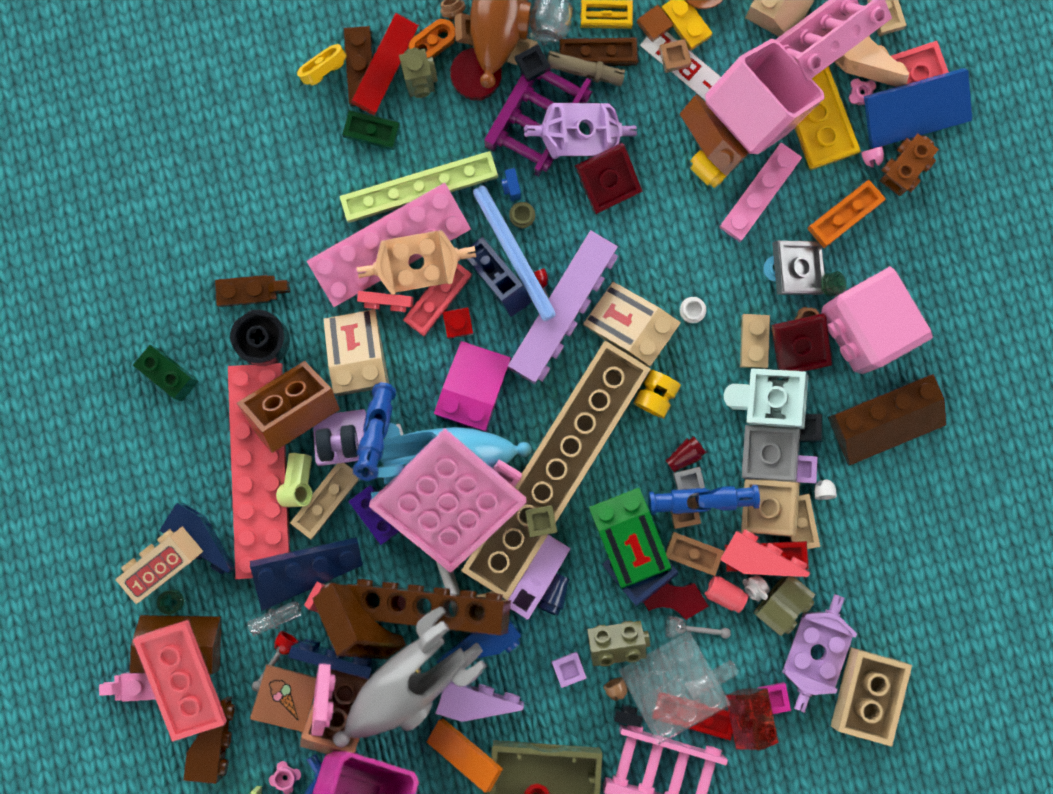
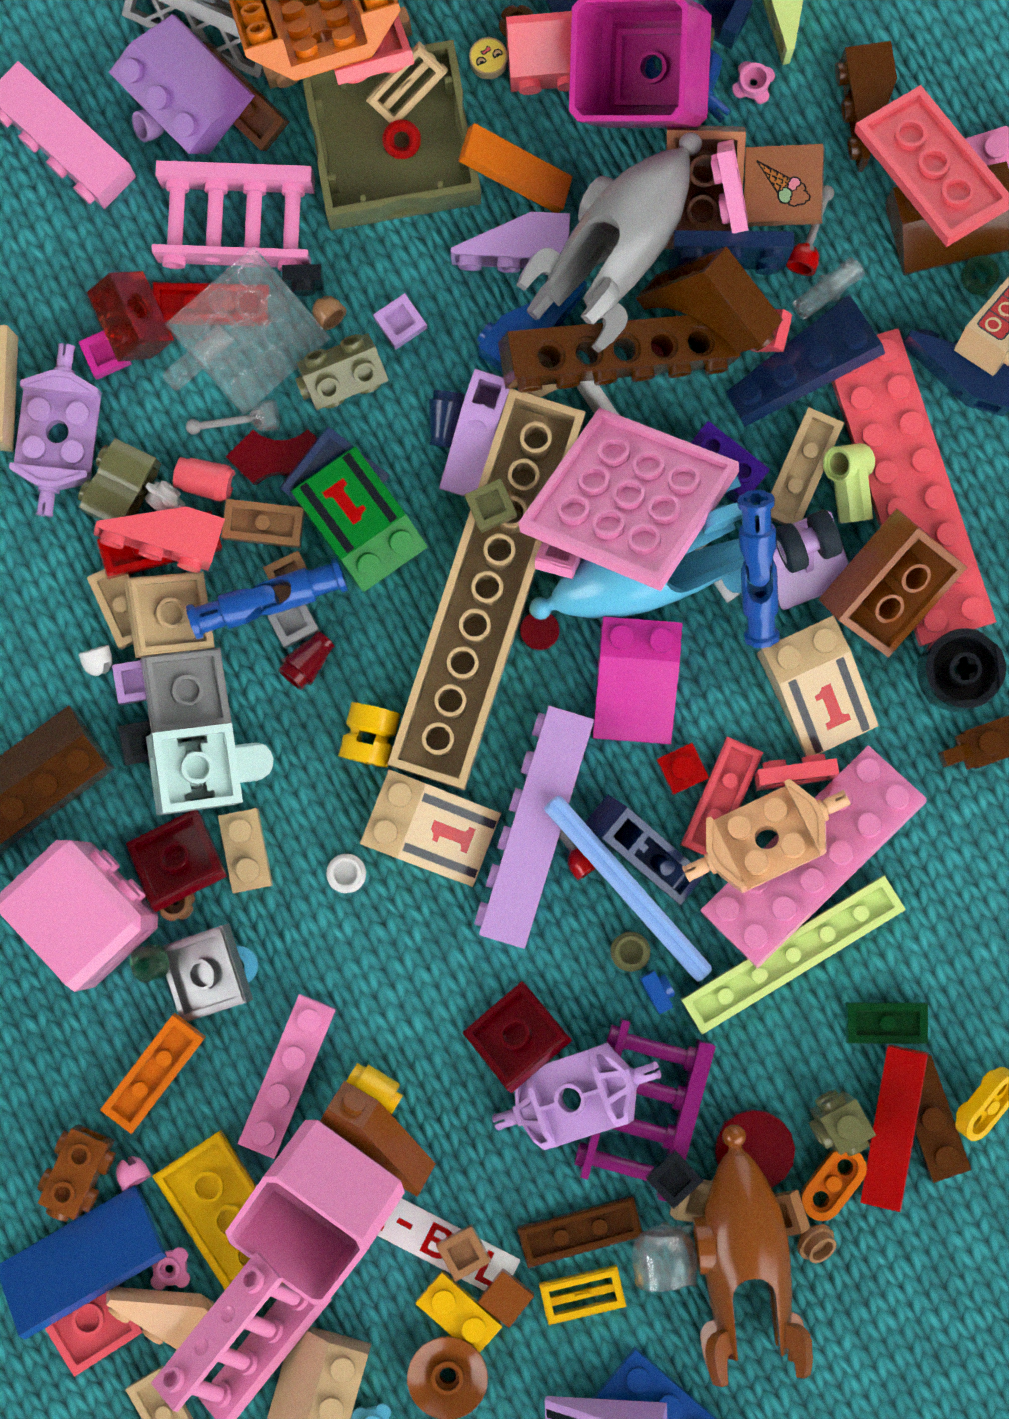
camera: 170 degrees right, 0 degrees up
(528, 433) = (539, 633): none -> dark red tile
(588, 69) = (592, 1197): dark tan pin -> none

